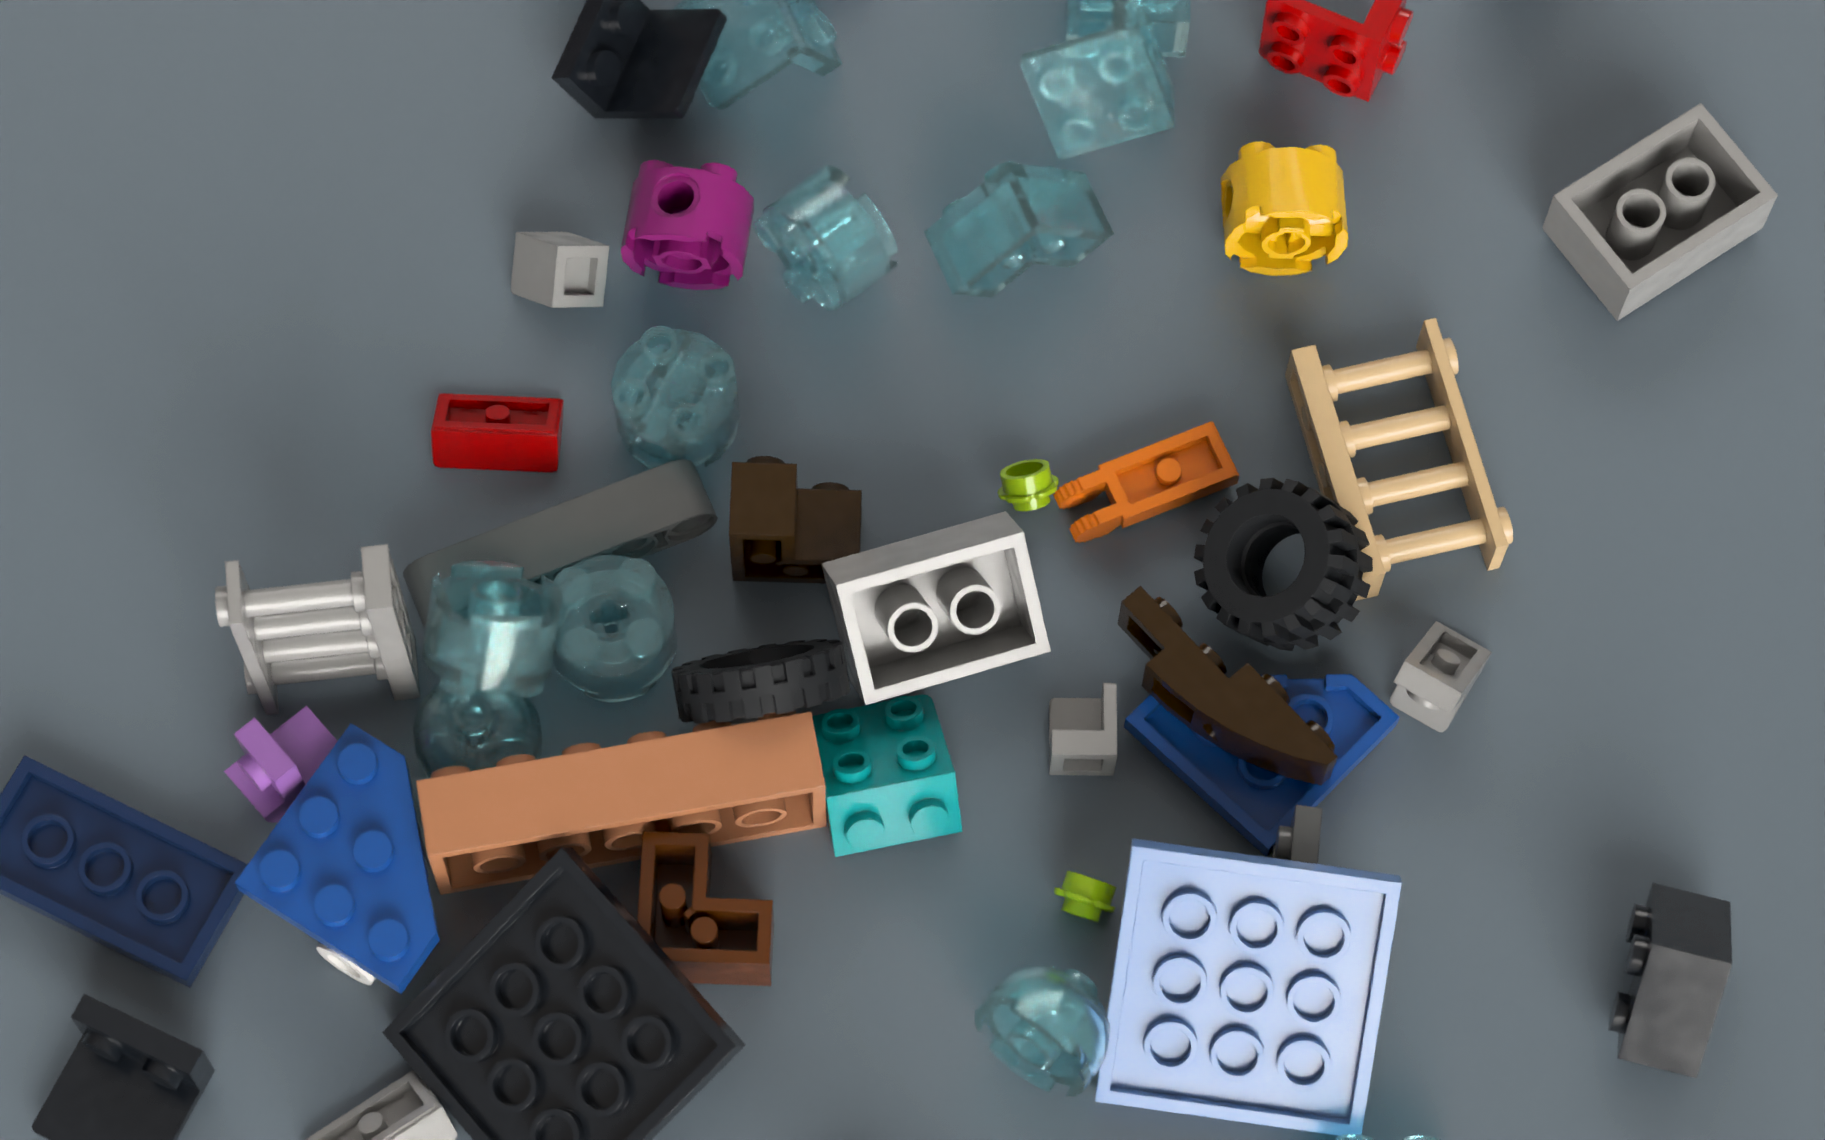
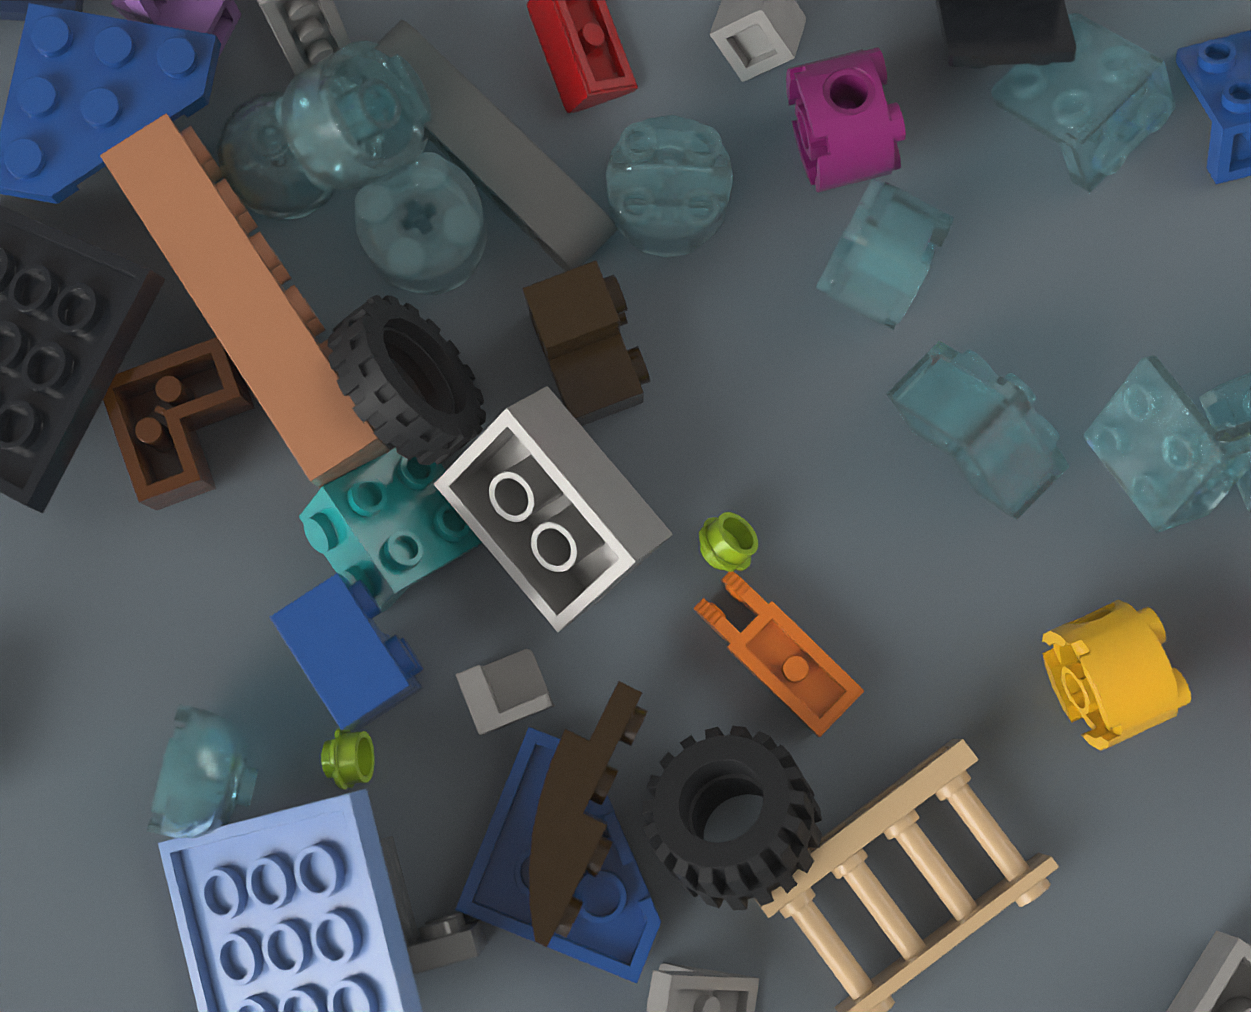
camera: 70 degrees right, 15 degrees up
(995, 833) = (346, 654): none -> blue brick

